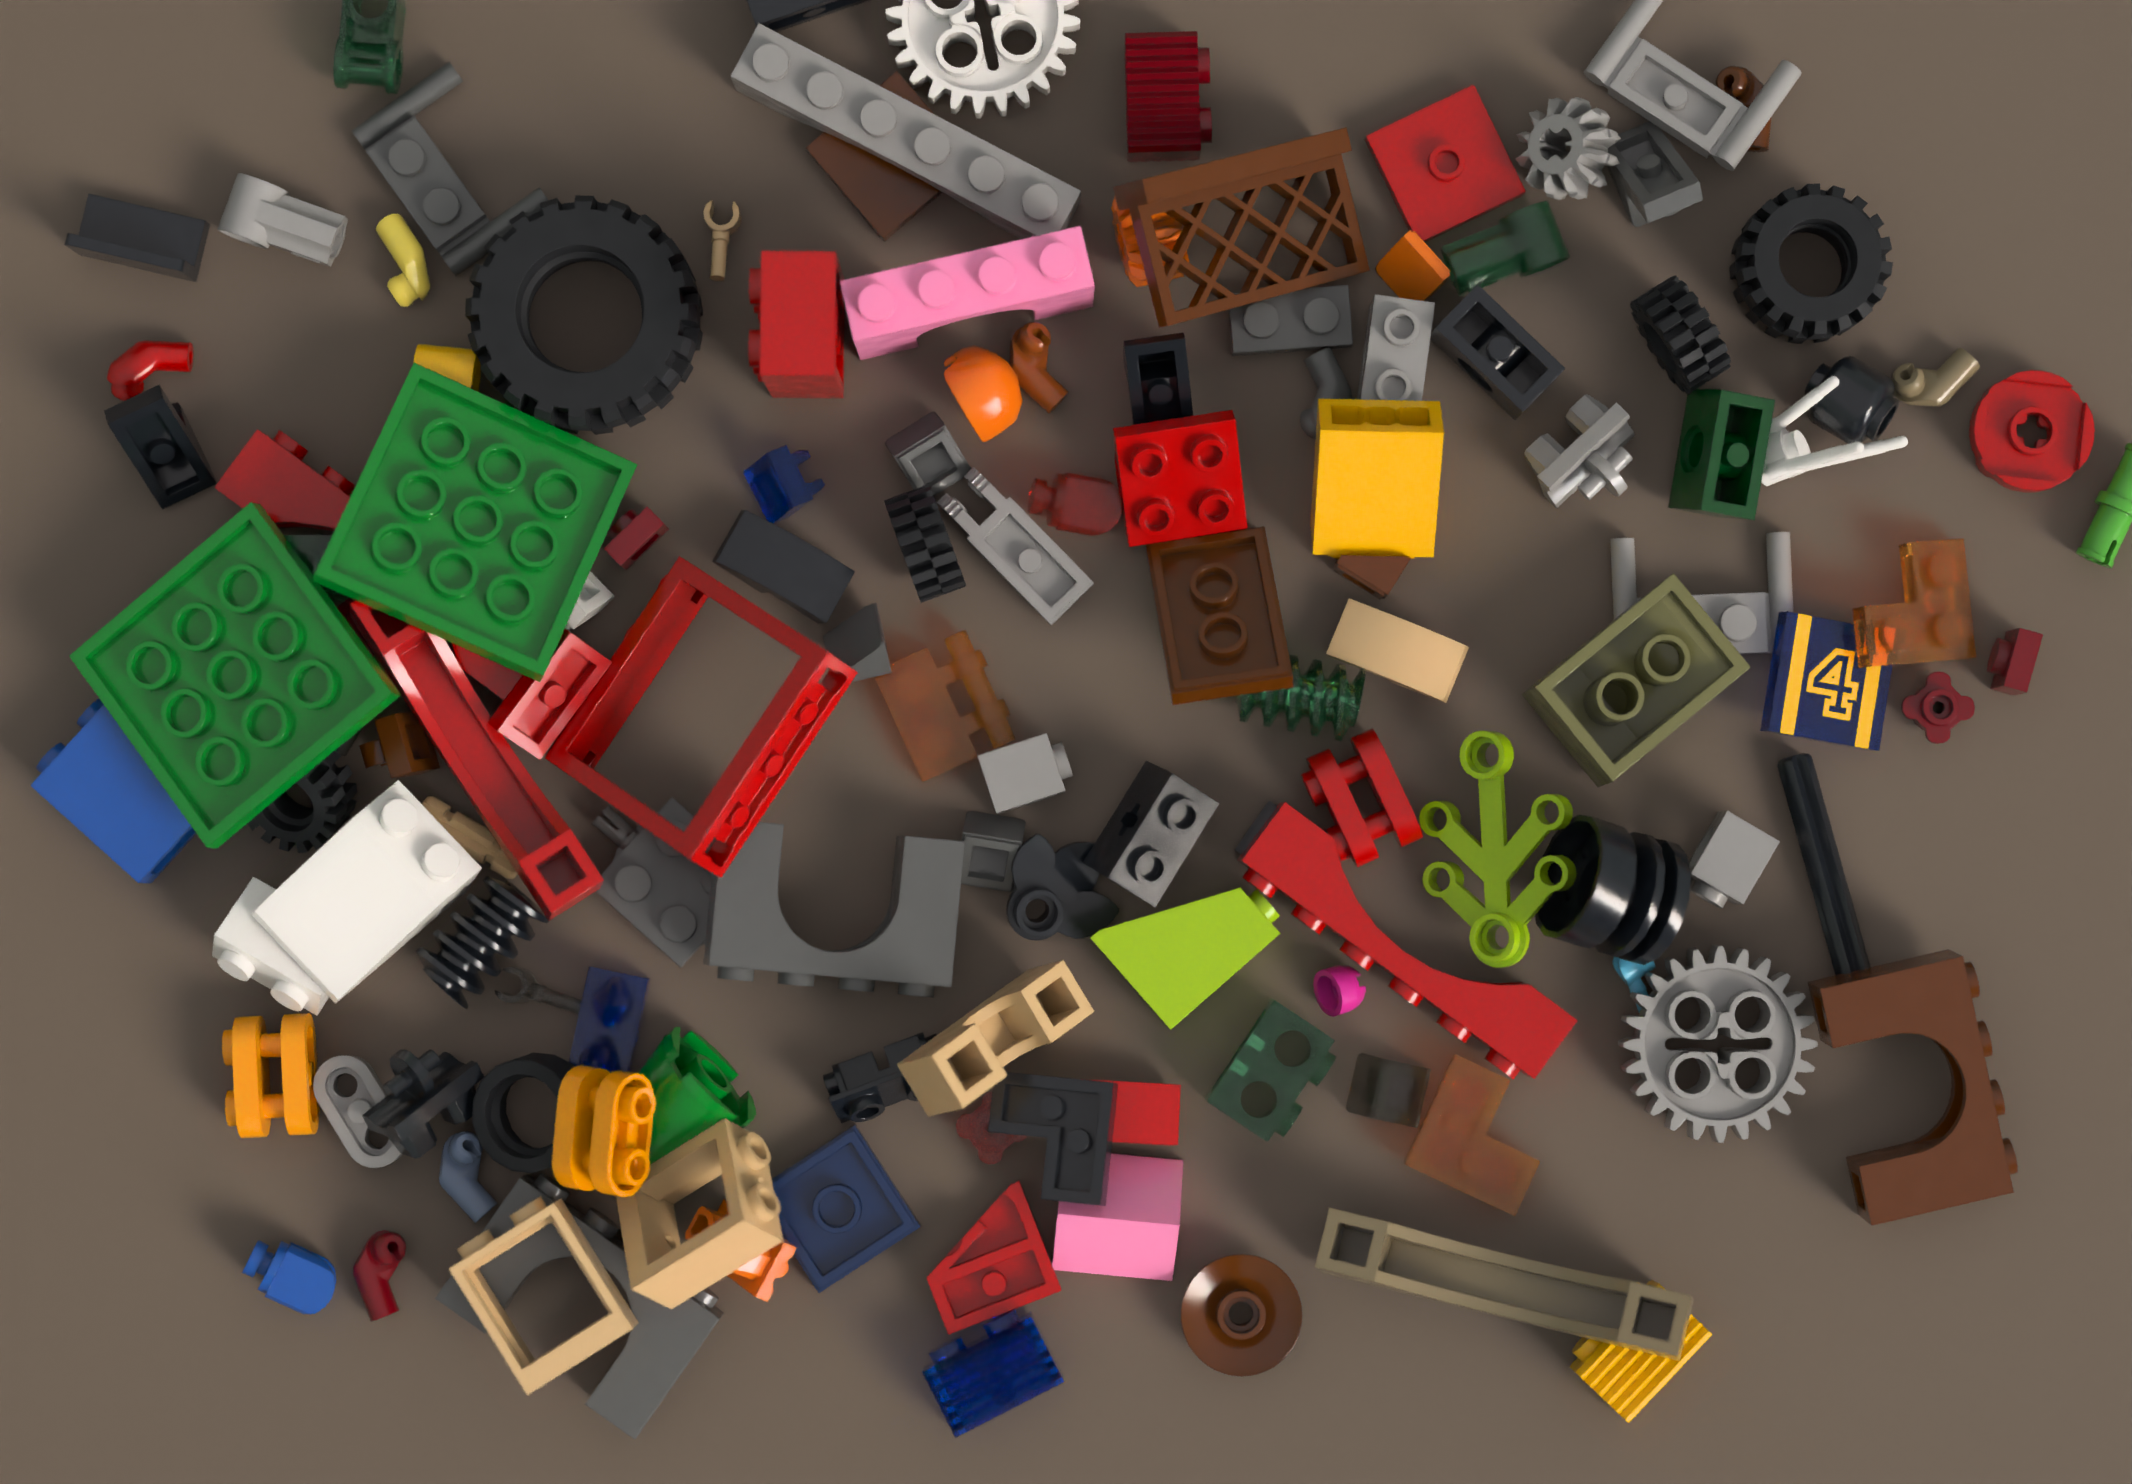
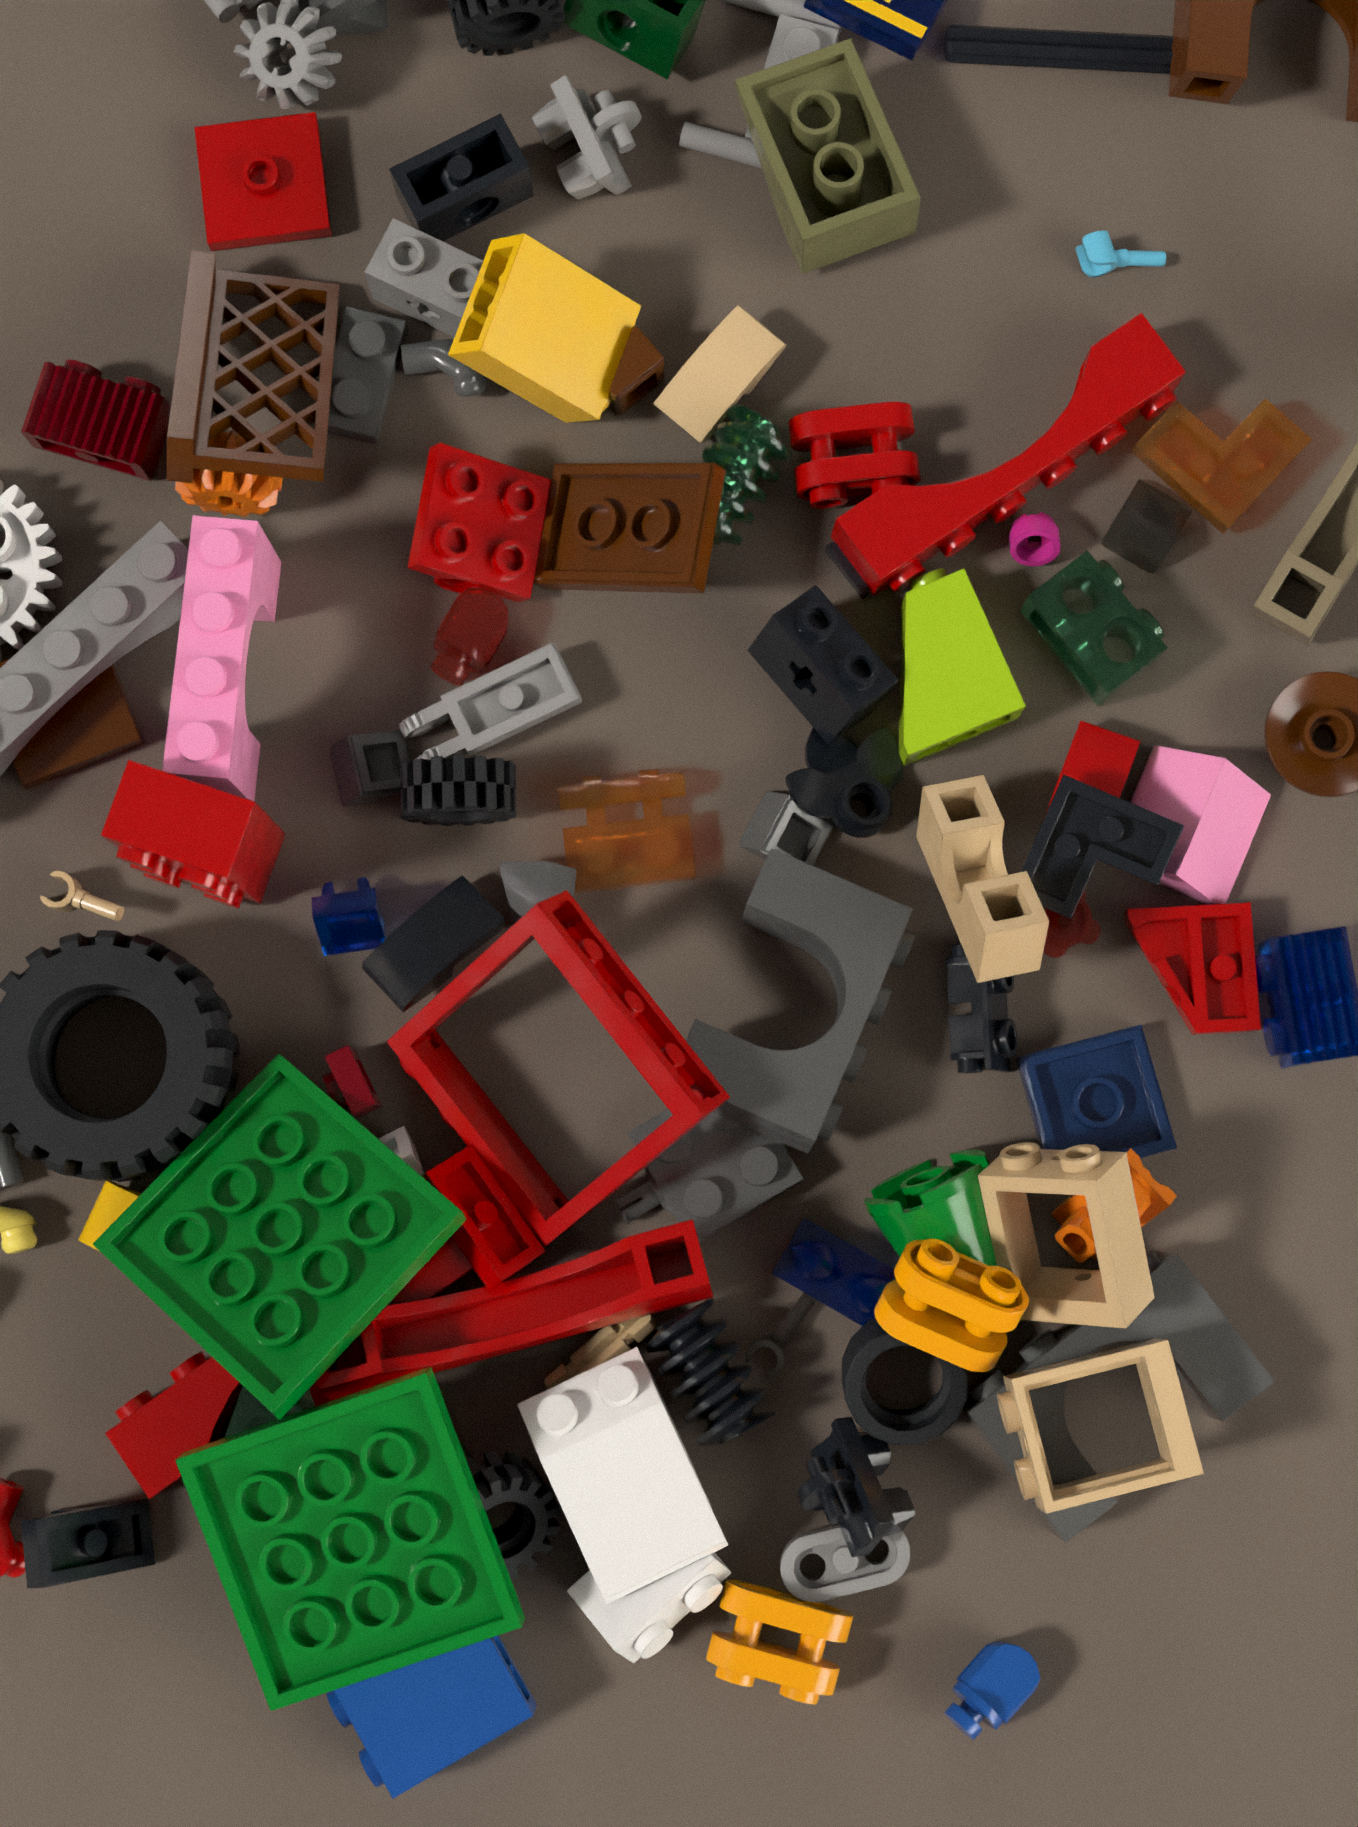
camera: 65 degrees left, 5 degrees down
(374, 1269) = (1012, 1599): dark red arm -> none
(401, 747) = (483, 1391): reddish brown tile -> none
(460, 1173) = (940, 1477): sand blue arm -> none
(984, 389) = (324, 680): orange hair -> none
(1025, 772) = (720, 772): light grey brick -> none
(1029, 362) = (318, 639): dark orange arm -> none
(1158, 378) = (371, 510): black slope -> none
(1412, 269) = (350, 238): orange slope -> none
(1496, 858) = (958, 341): lime plant -> none
(1518, 245) = (365, 133): clear green piece -> none
(1625, 890) = (1025, 234): black wheel -> none
(1716, 1096) = (1149, 178): light grey gear -> none
(1729, 860) = (1027, 128): light grey brick -> none

